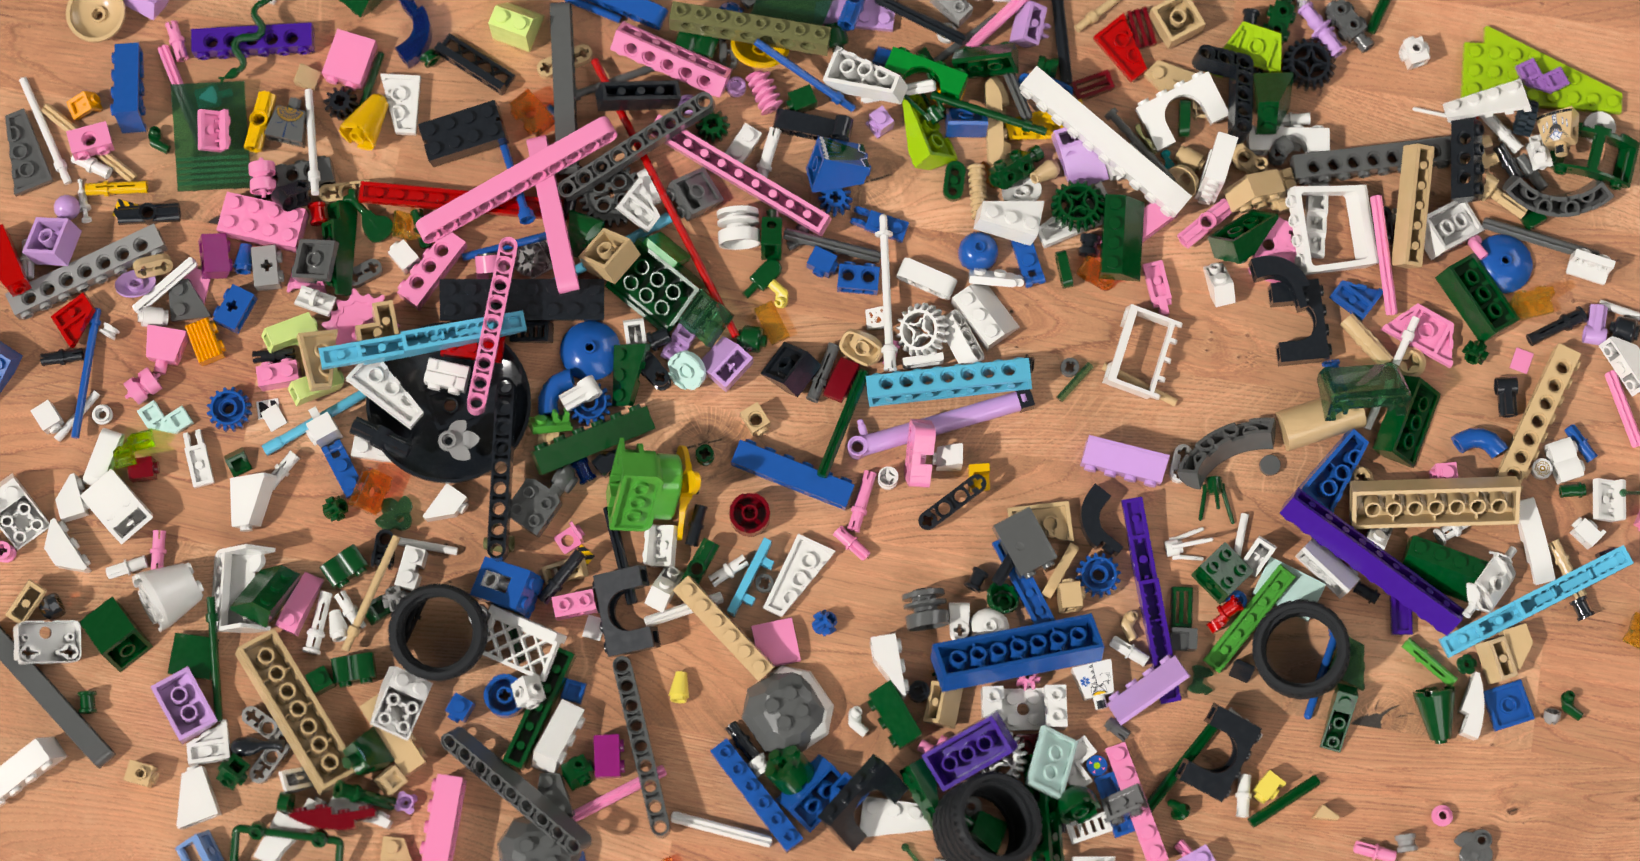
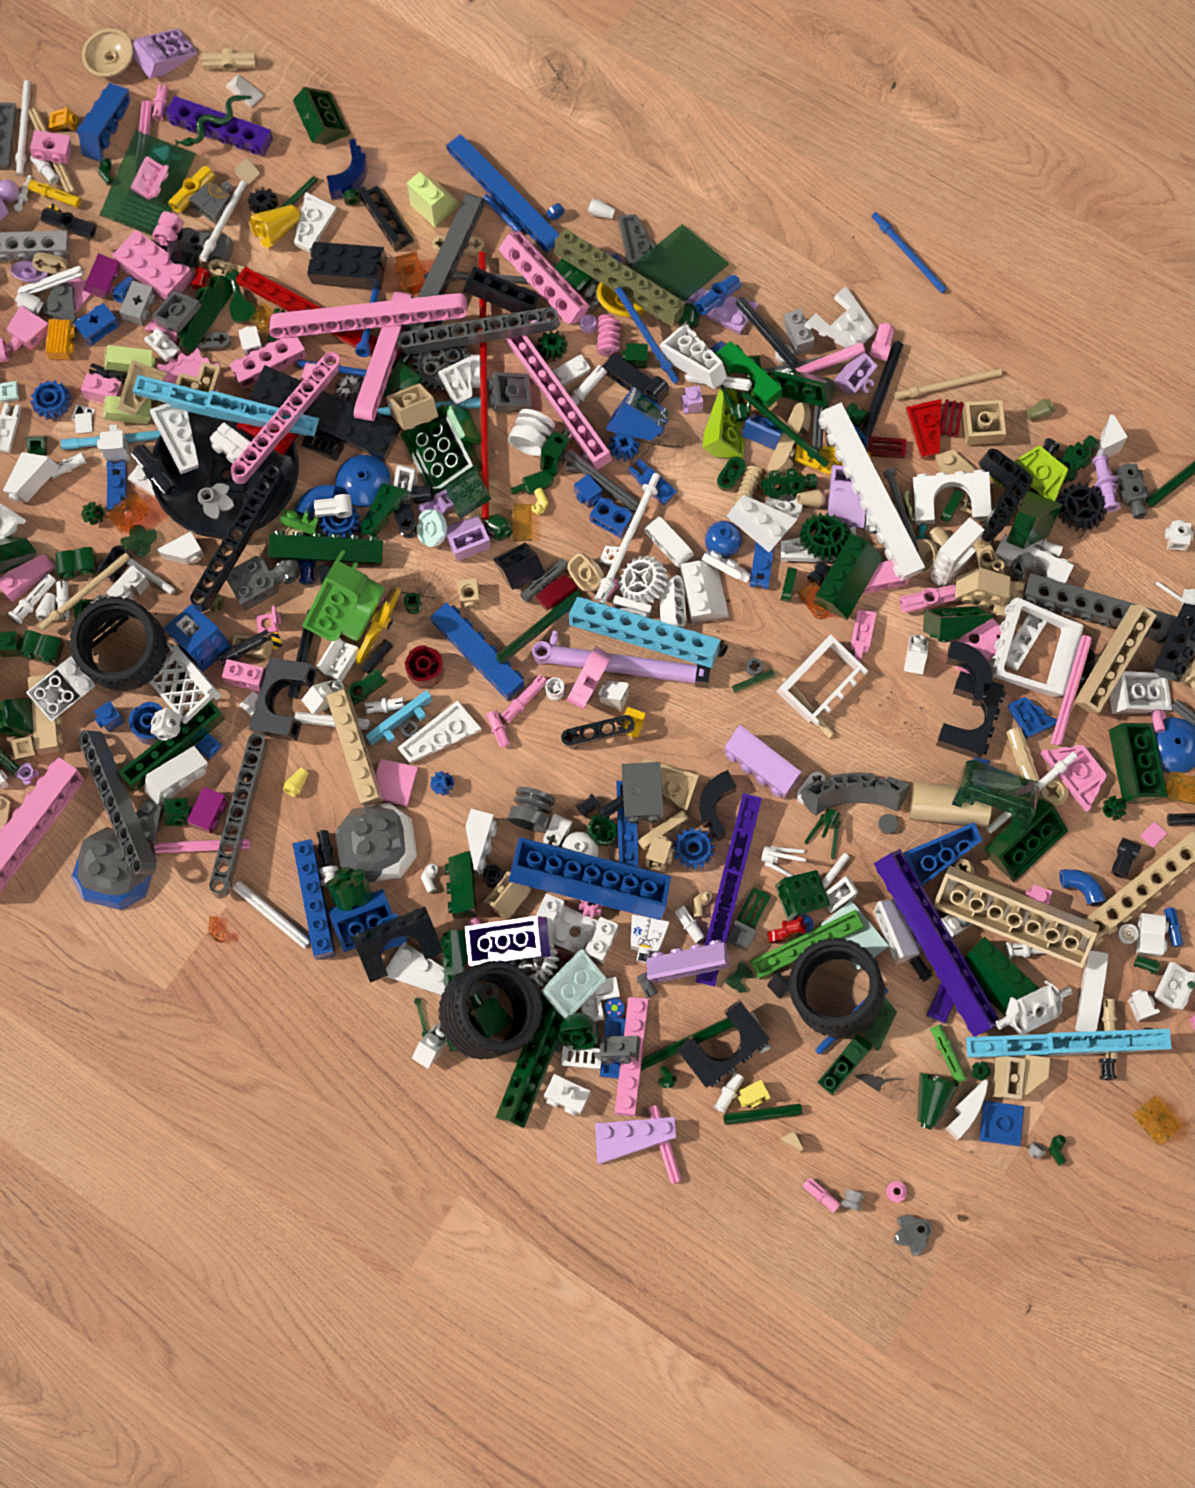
camera: 30 degrees right, 5 degrees down
(349, 60) = (287, 172): bright pink brick -> none

